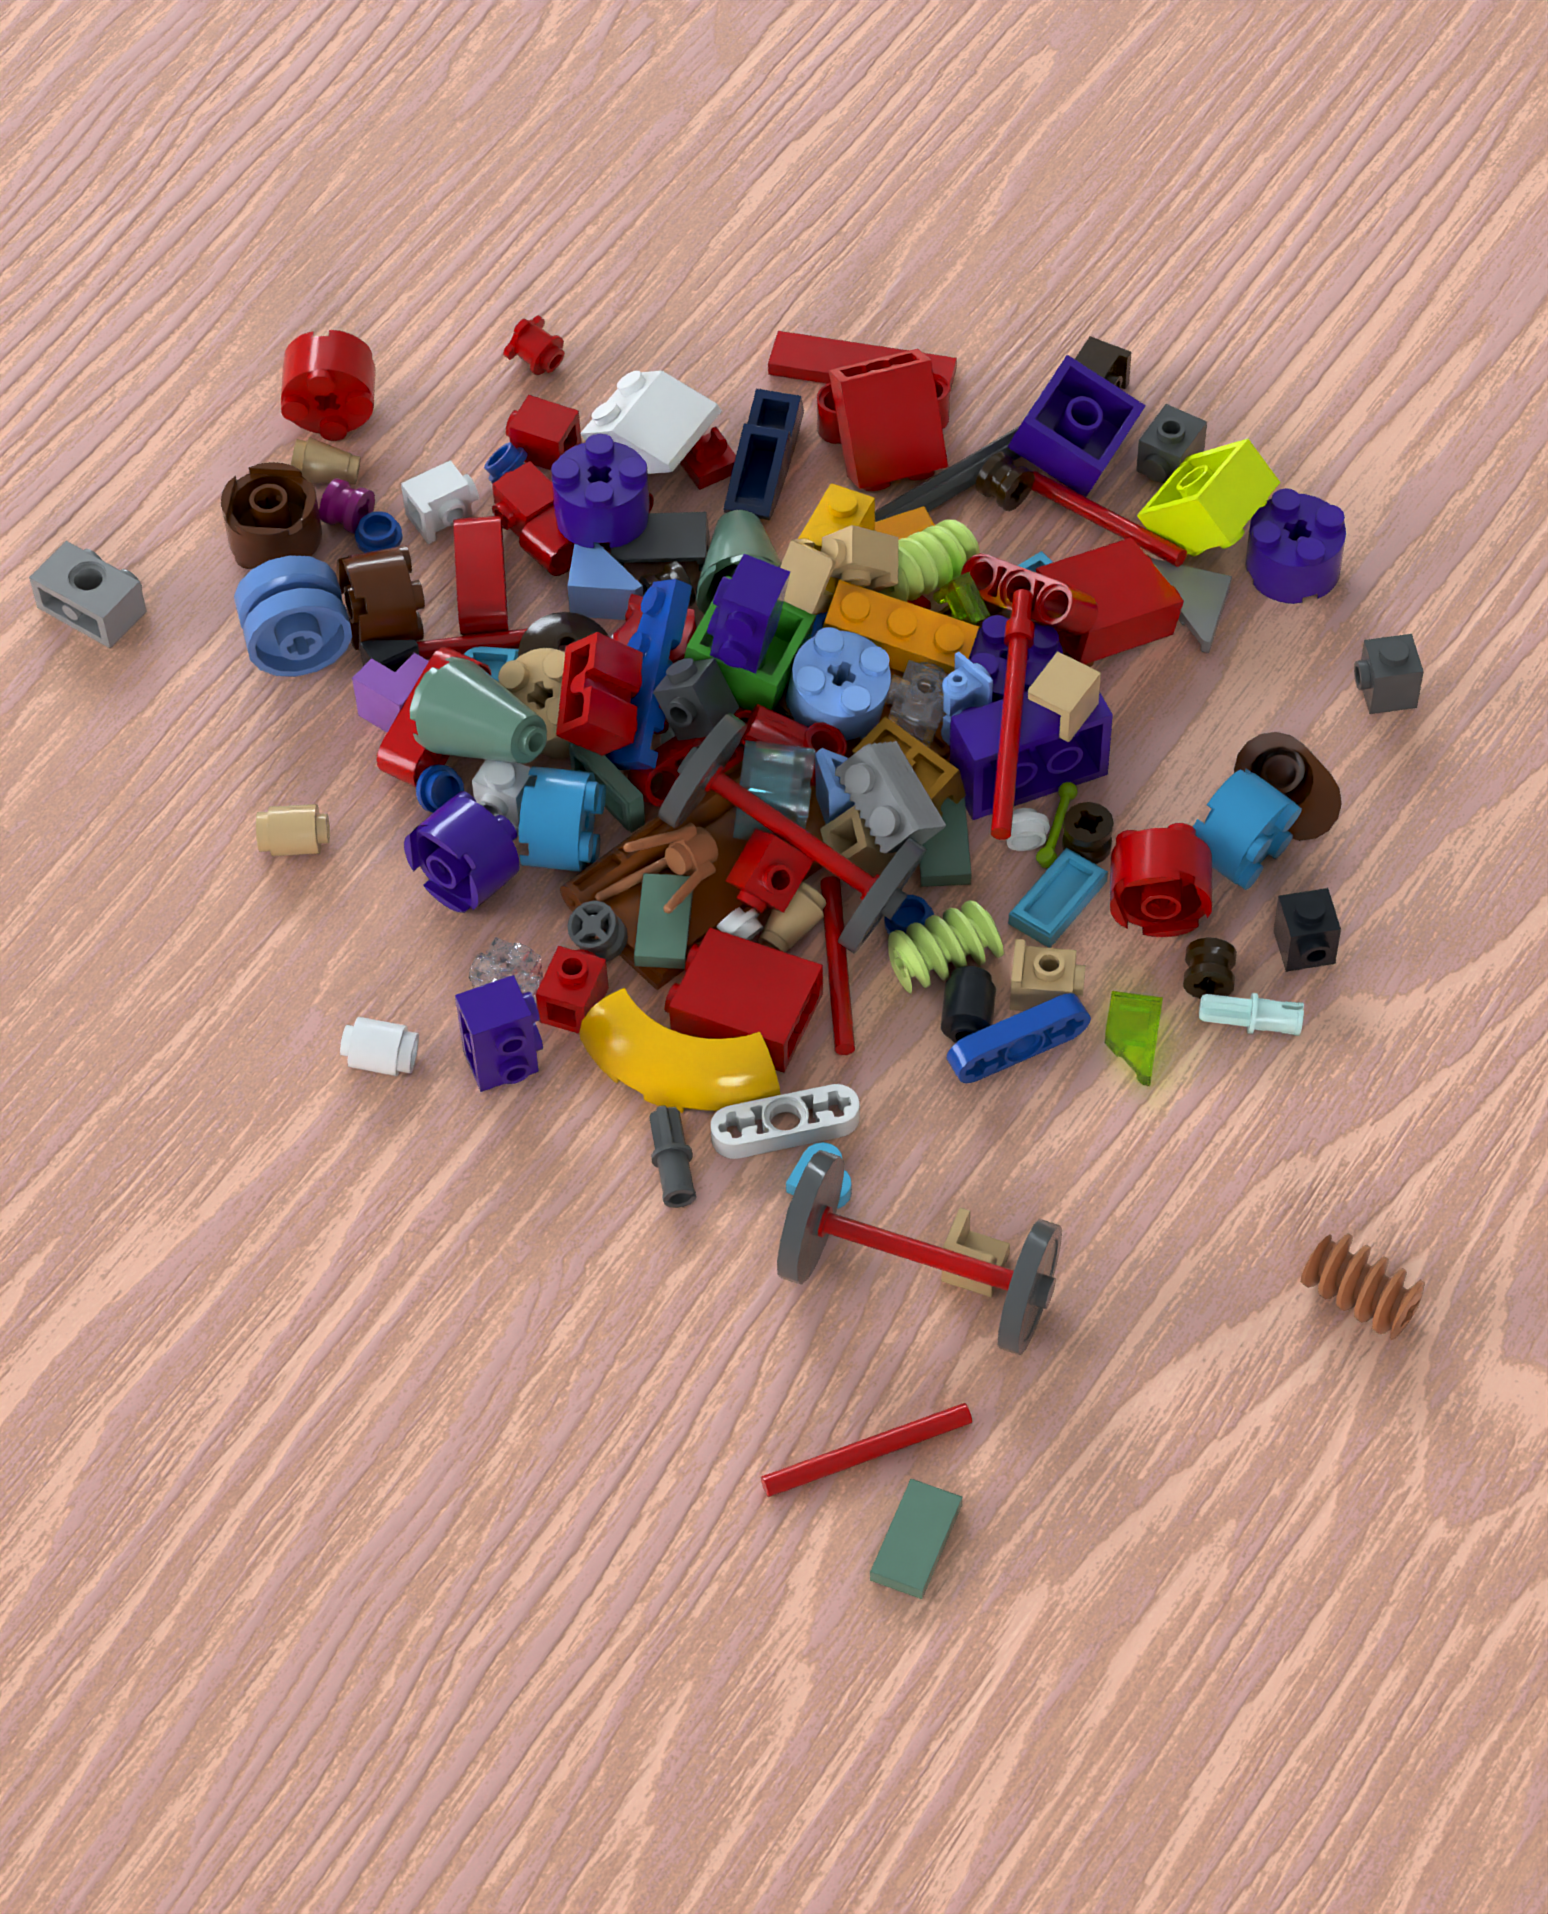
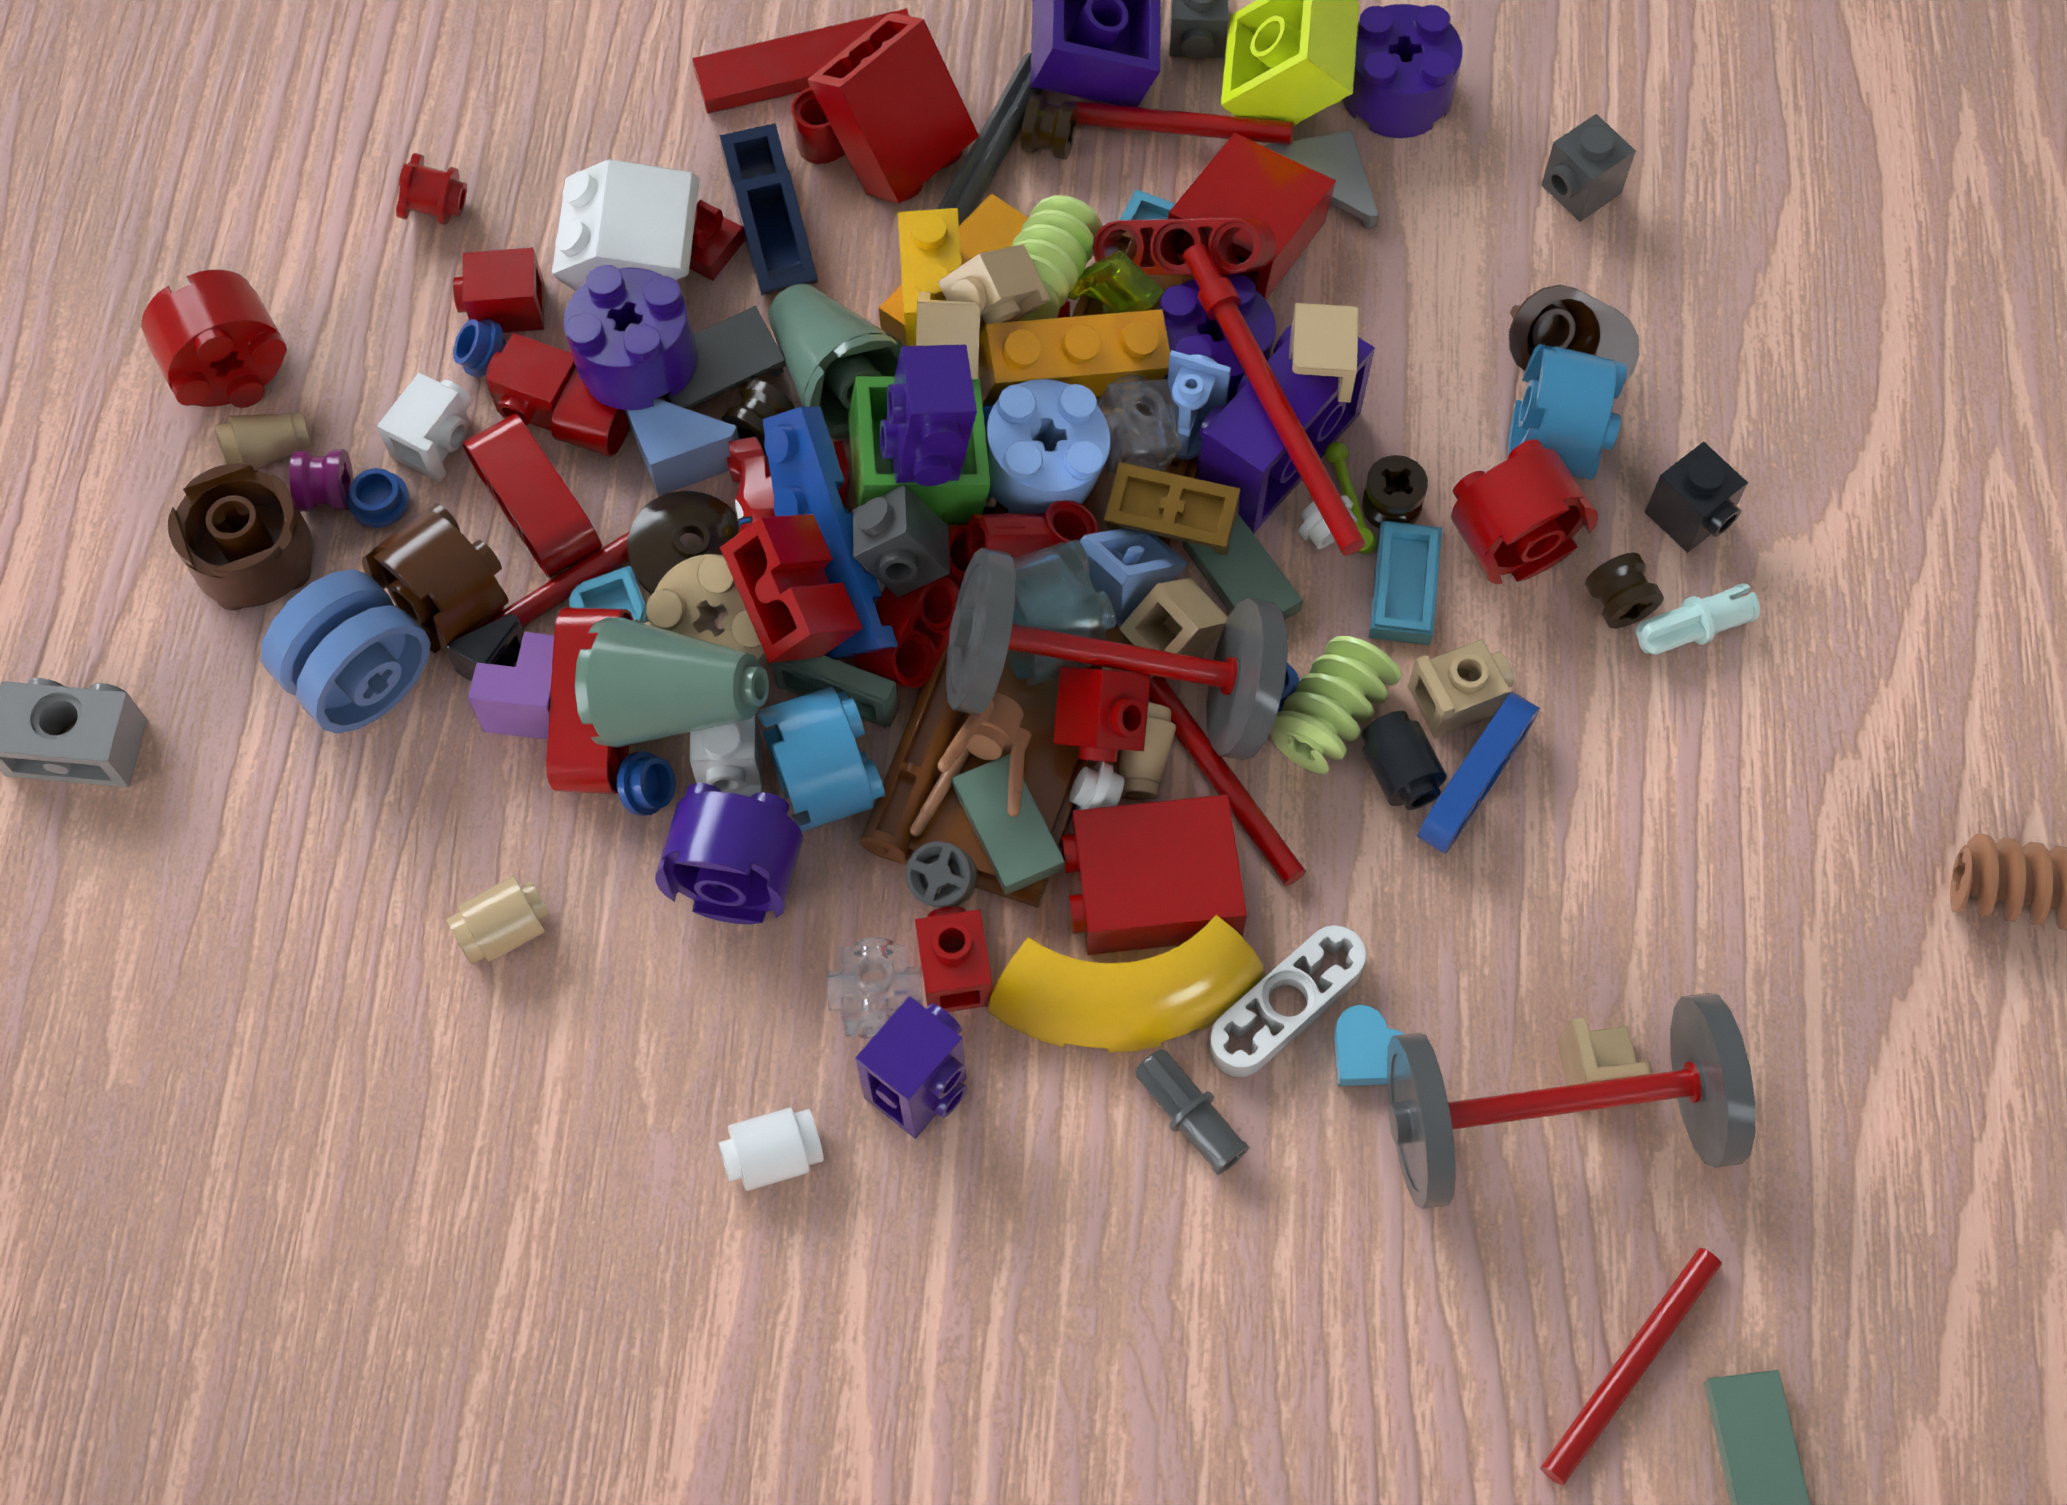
camera: 30 degrees left, 10 degrees up
(889, 796) = (1190, 559): light grey brick -> none
(1134, 1031) = (1587, 701): clear neon green tile -> none

